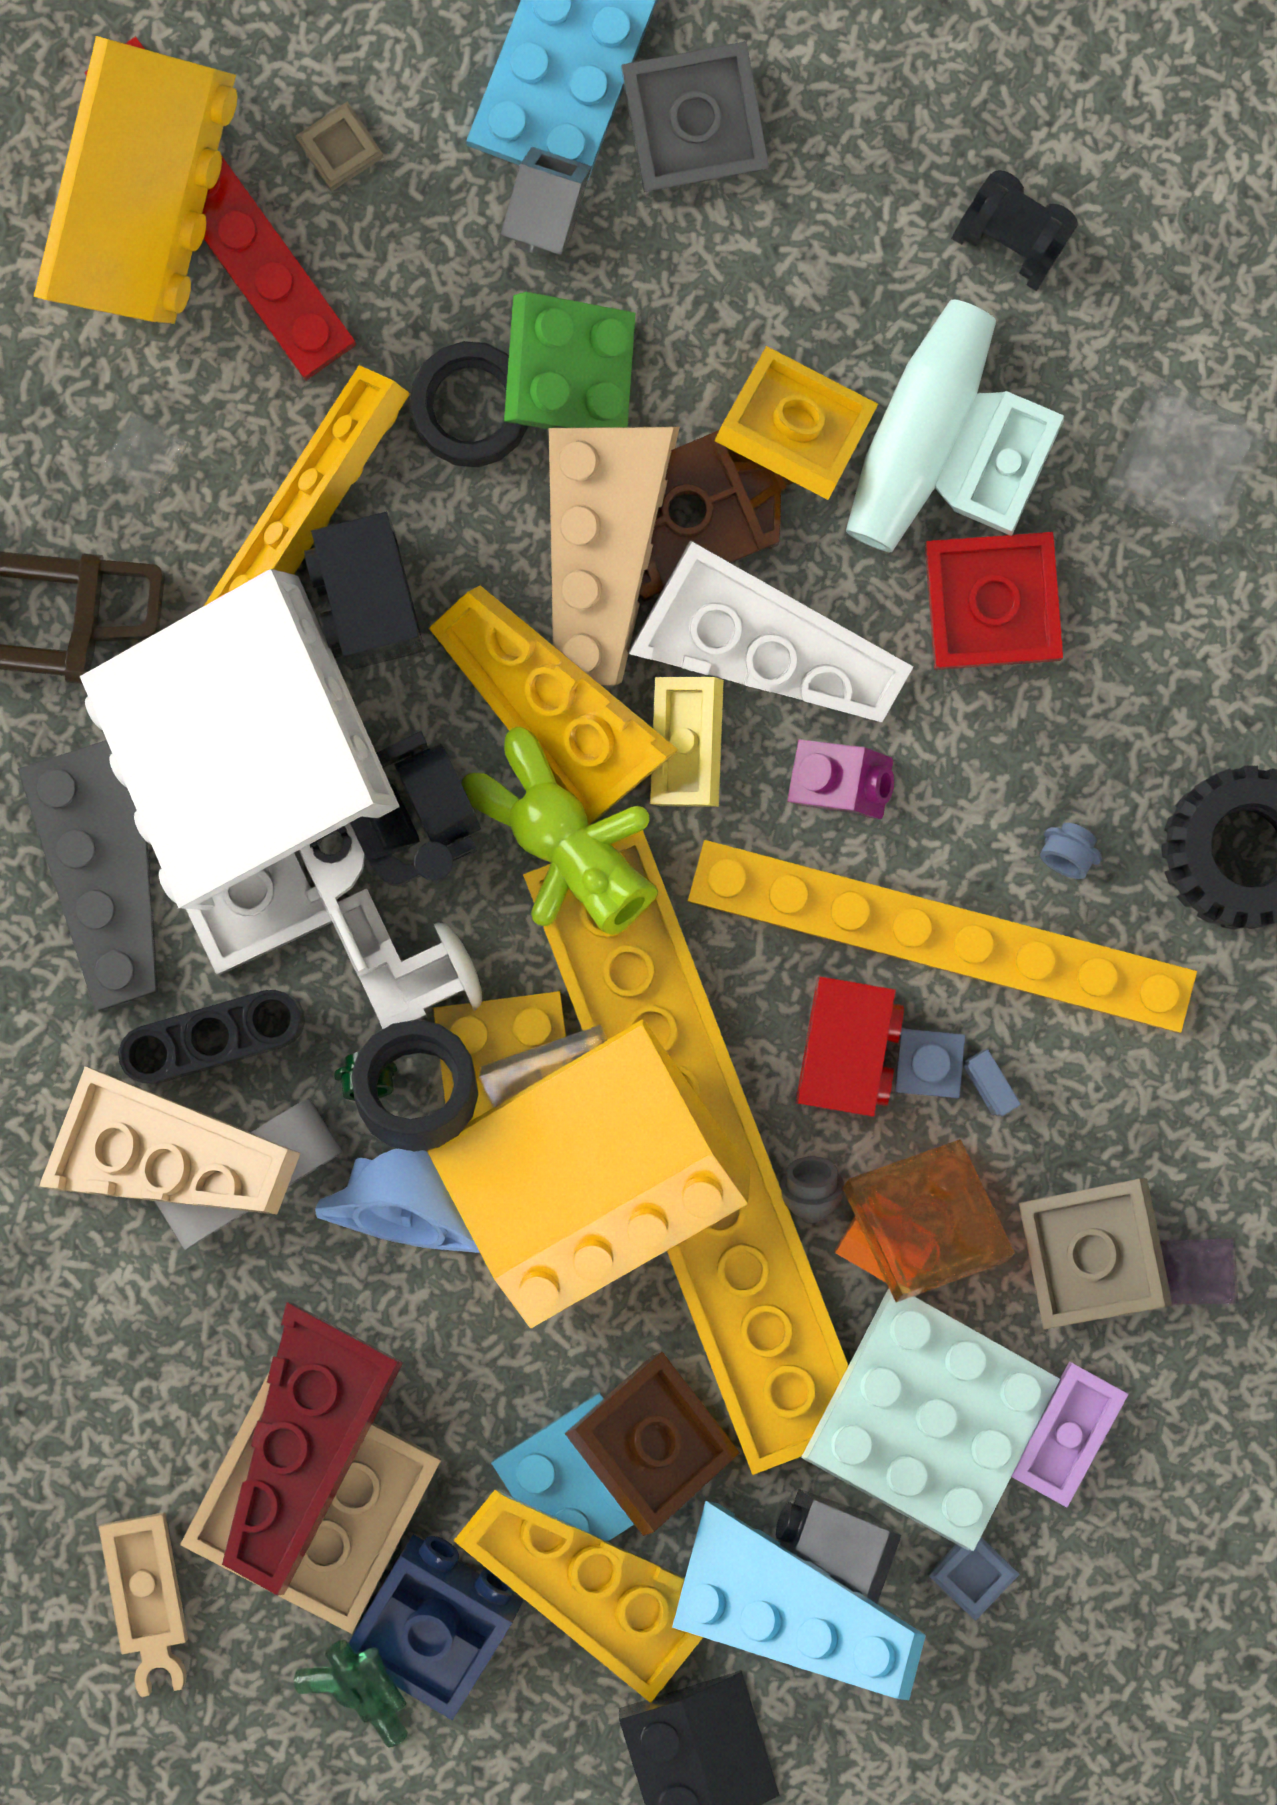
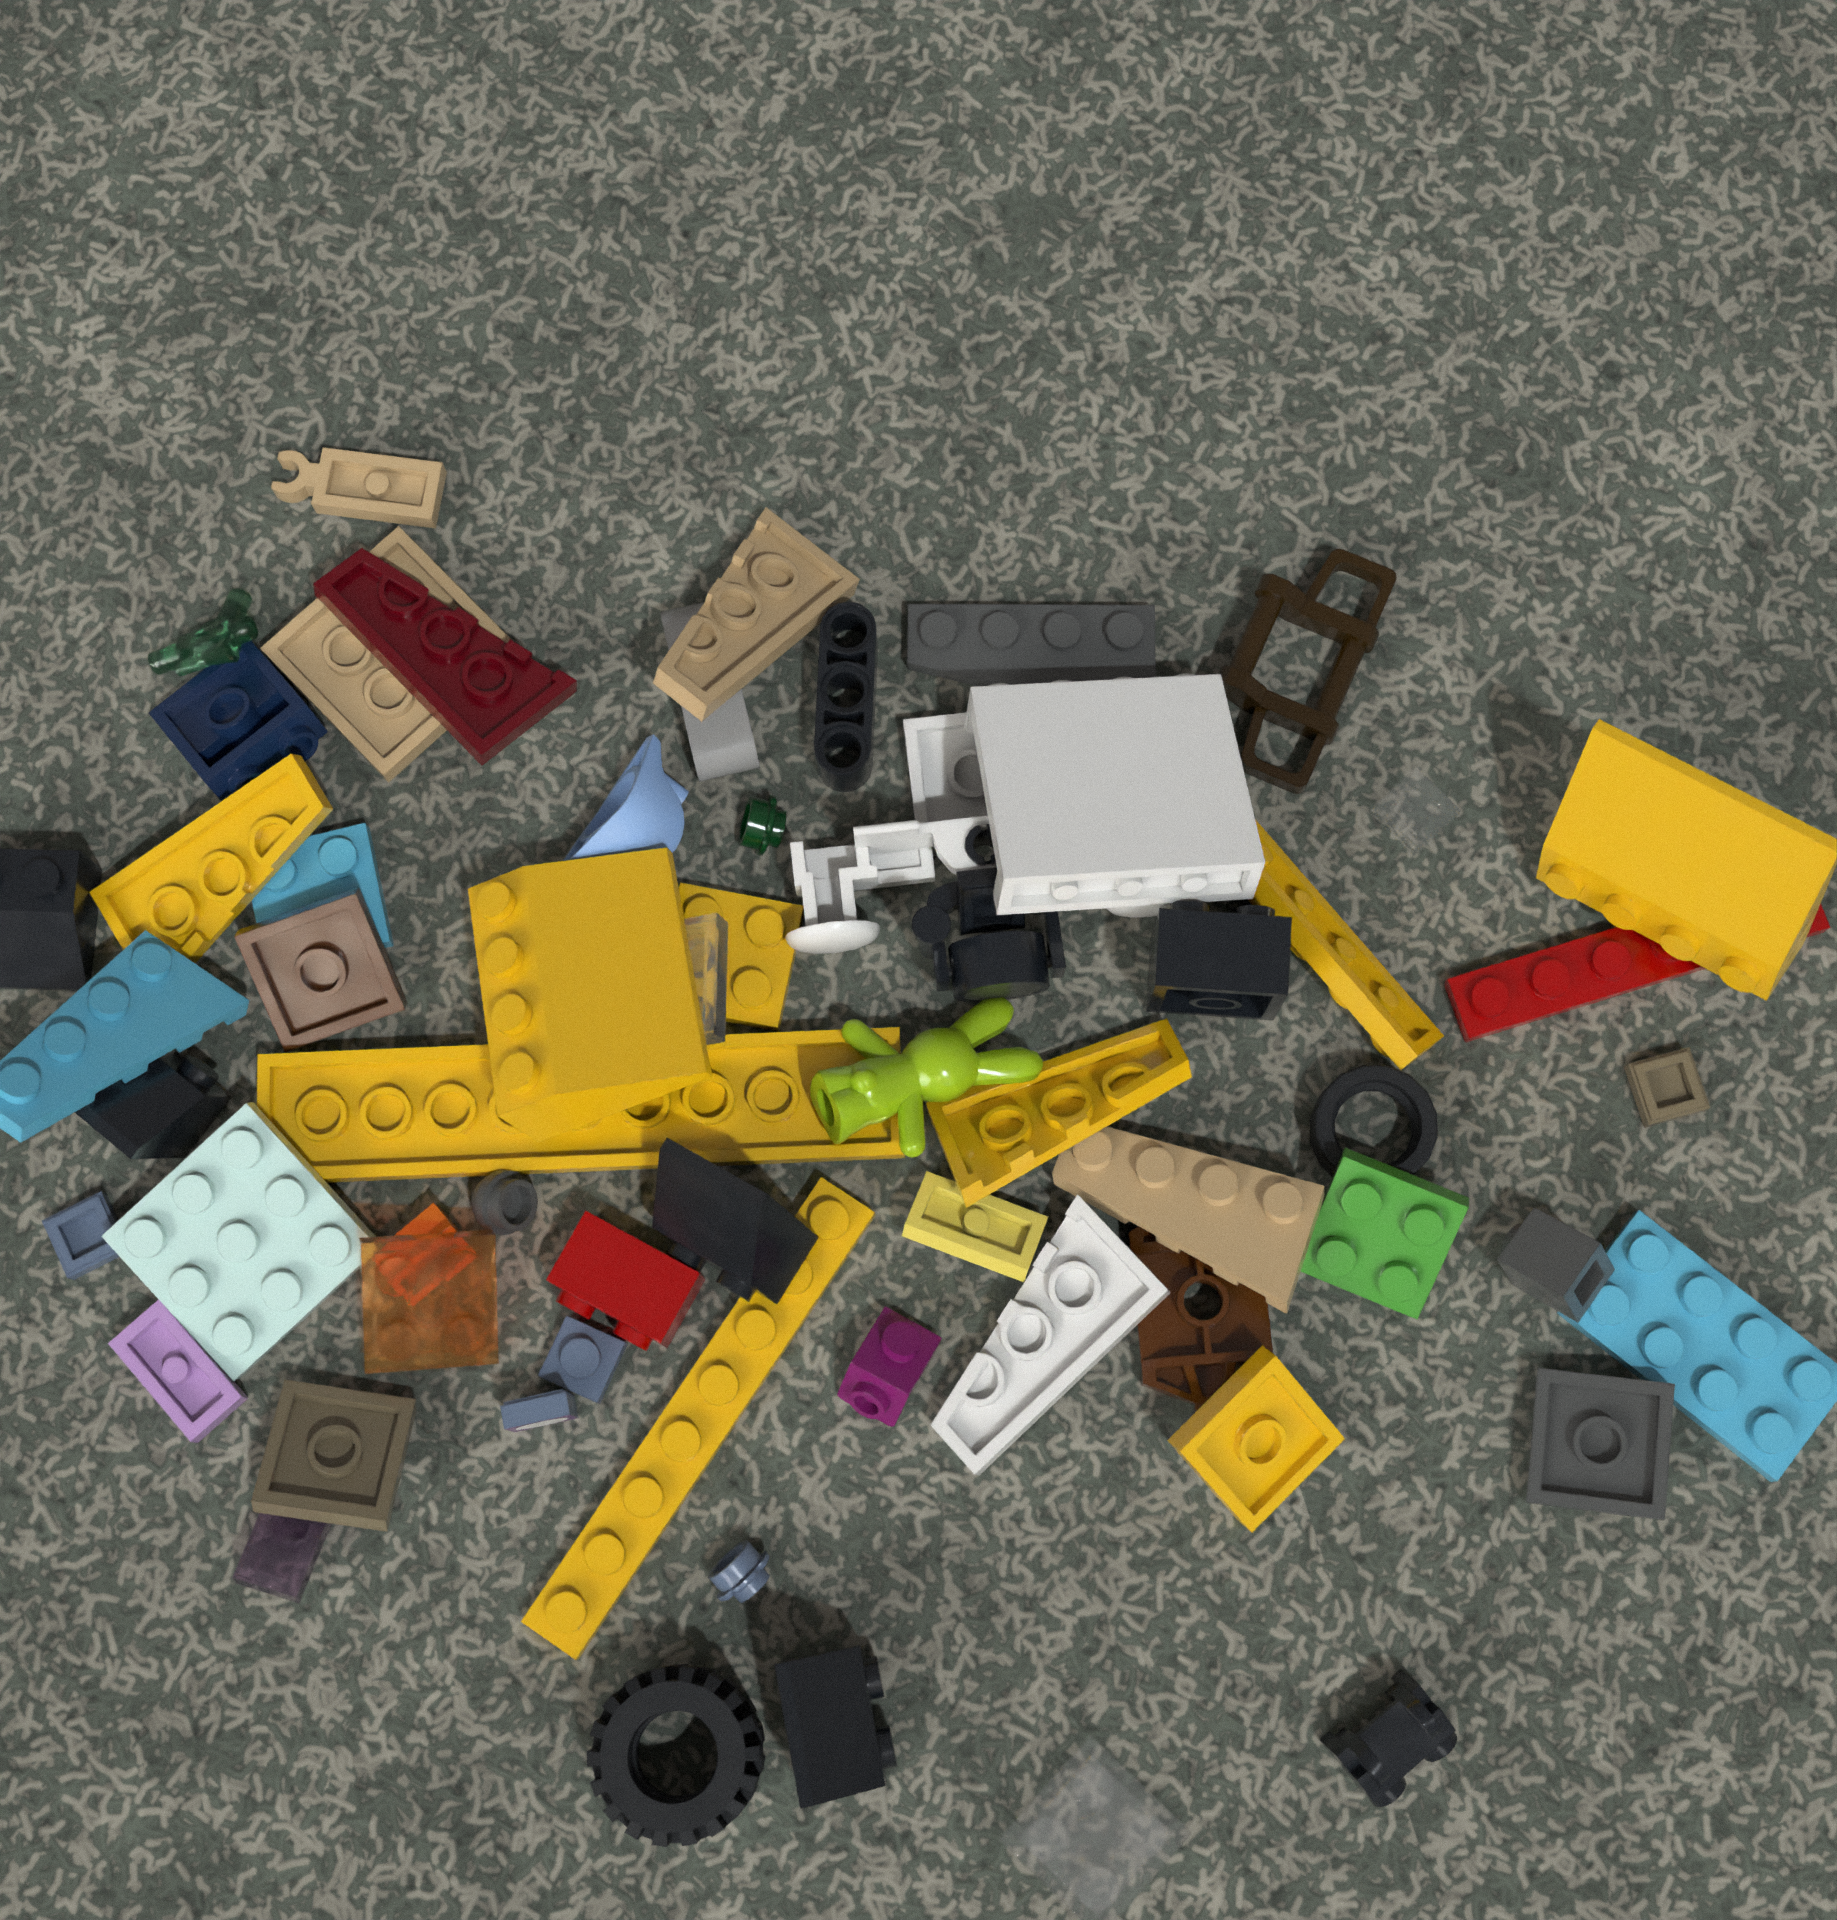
camera: 115 degrees right, 10 degrees down
(408, 1039) = (770, 827): black tyre -> none
(770, 965) = (727, 1225): none -> black slope
(949, 438) = (1197, 1588): light aqua plate -> none
(993, 601) = (1015, 1581): red plate -> none
(1174, 717) = (834, 1724): none -> black slope

